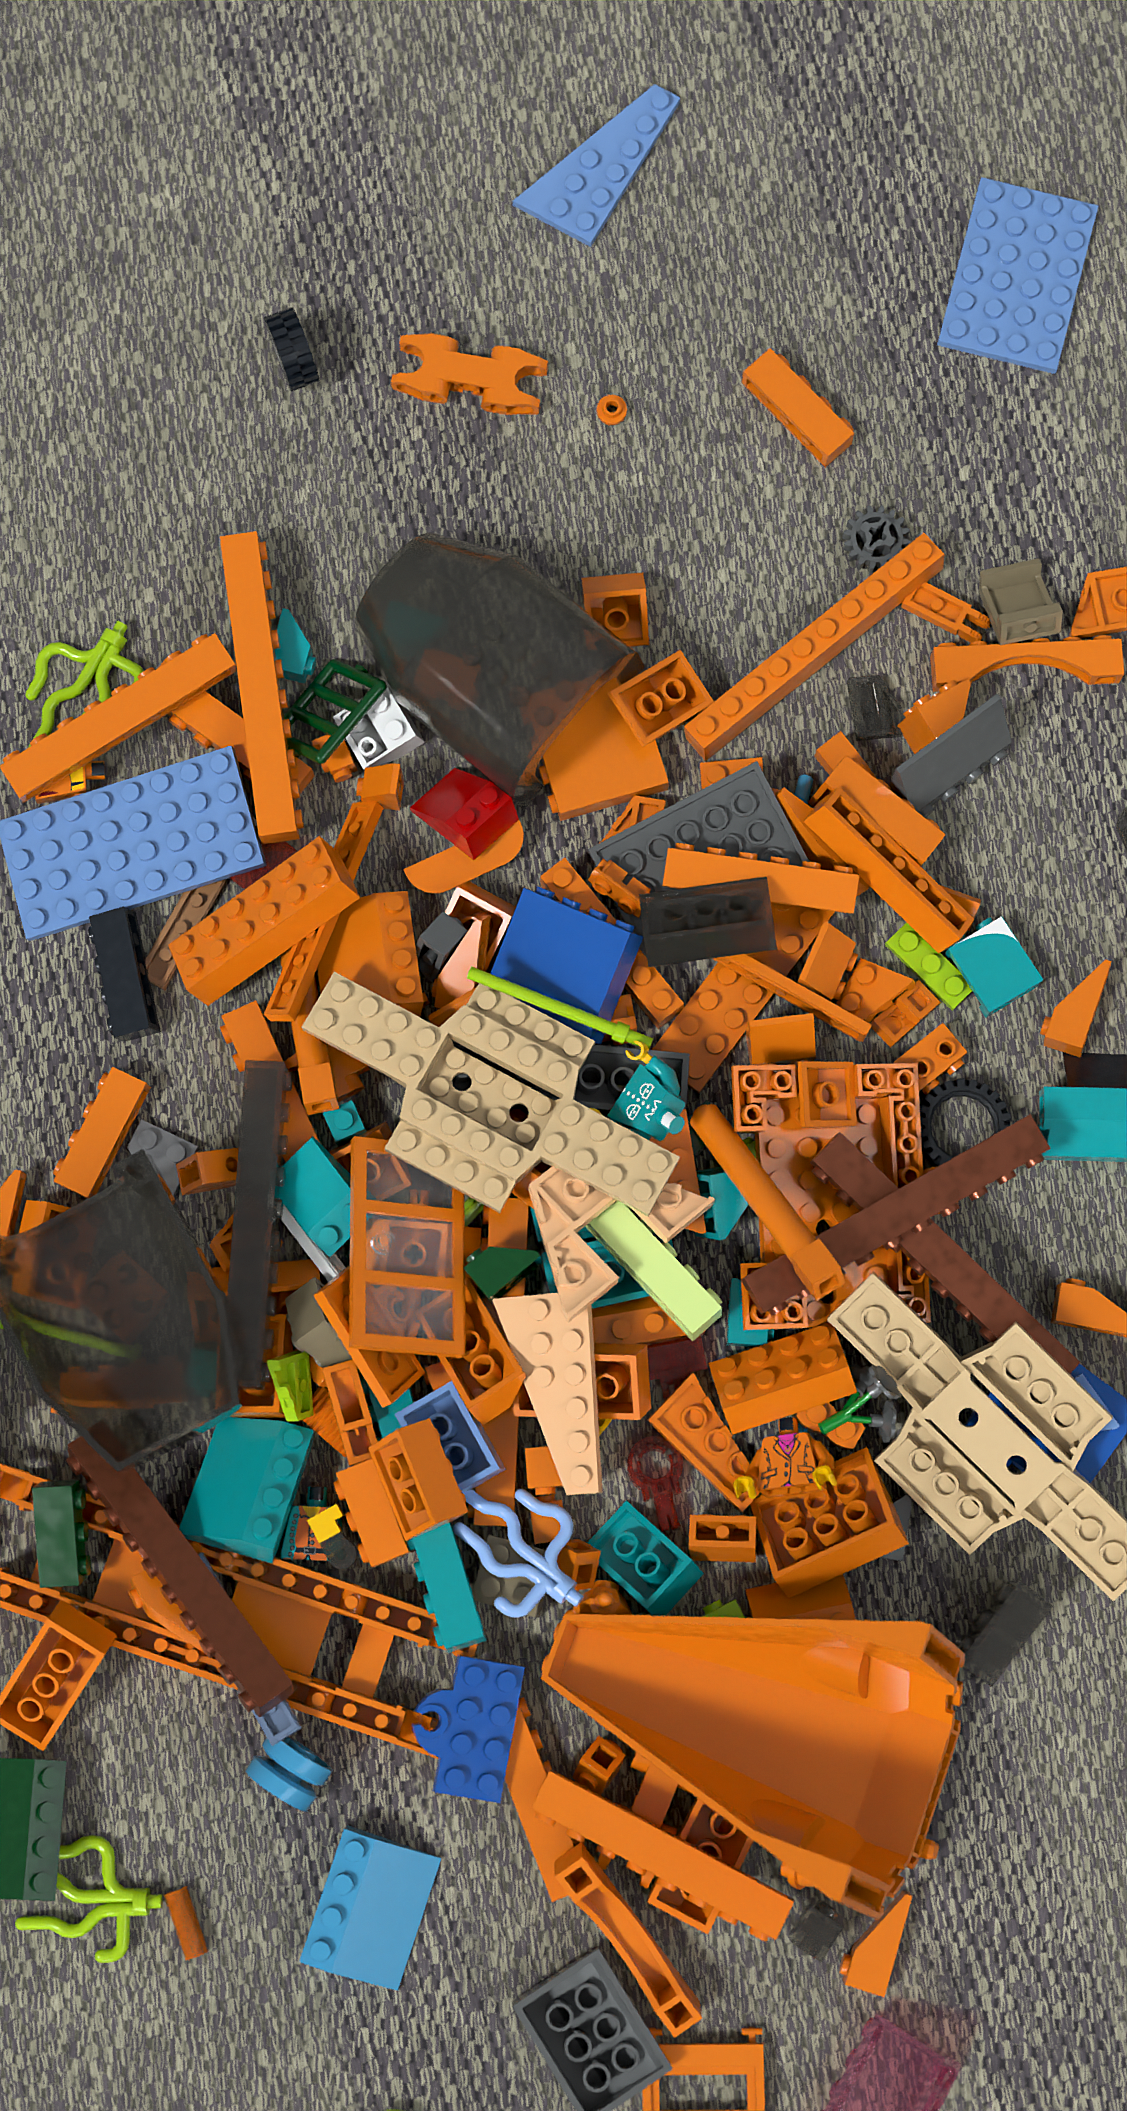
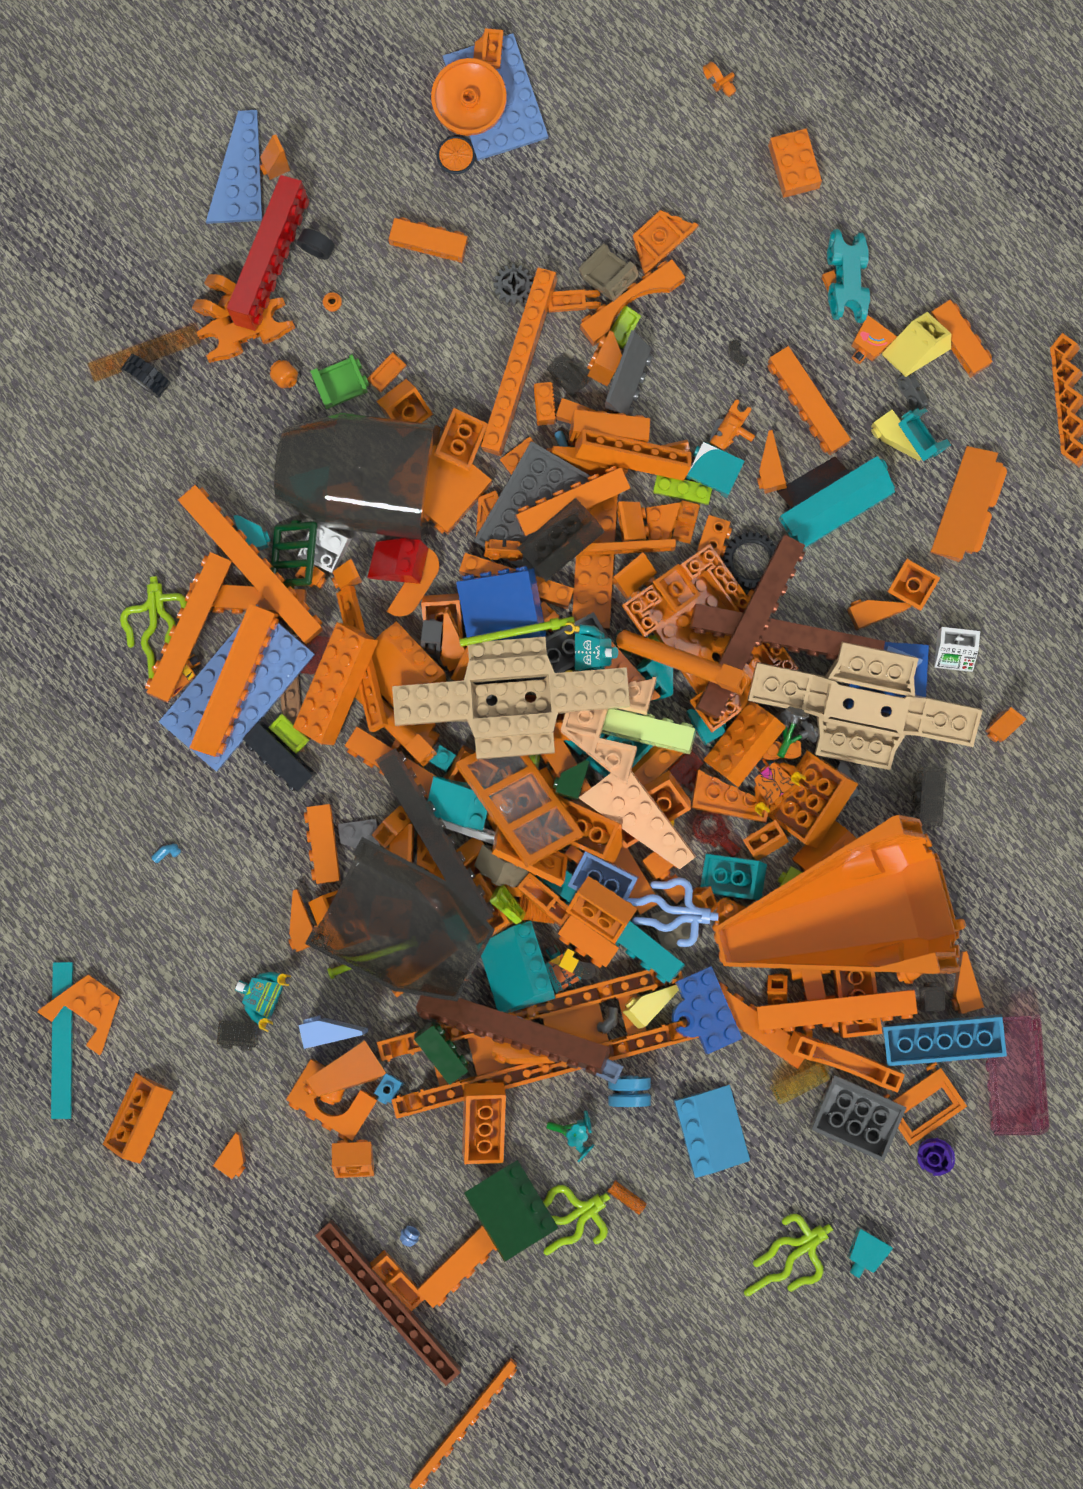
camera: 40 degrees left, 5 degrees up
(128, 827) = (234, 681): none -> orange slope
(157, 957) = (290, 736): none -> lime tile
(171, 1781) = (576, 1134): none -> teal plant
(208, 1208) = (404, 843): none -> orange slope
(317, 322) = (147, 351): none -> clear orange tile
(329, 1651) = (607, 1025): none -> dark grey arm
(392, 1663) = (646, 1007): none -> light yellow slope
(476, 293) = (209, 308): none -> orange piece
(480, 464) = (283, 374): none -> orange head
(541, 1924) = (799, 1082): none -> clear yellow brick
(549, 522) = (340, 382): none -> bright green panel
(565, 288) = (268, 253): none -> red brick
(623, 549) = (386, 372): none -> orange tile
(640, 317) = (315, 243): none -> black tyre
(658, 172) = (274, 159): none -> orange slope
(794, 2007) = (944, 1040): none -> dark azure brick
(812, 725) = (544, 403): none -> orange brick
(912, 319) = (456, 155): none -> orange wheel
(979, 248) = (469, 96): none -> orange dish
(1004, 681) = (624, 324): none -> lime plate
(1050, 921) = (729, 427): none -> orange piece
(1051, 204) = (490, 47): none -> orange slope

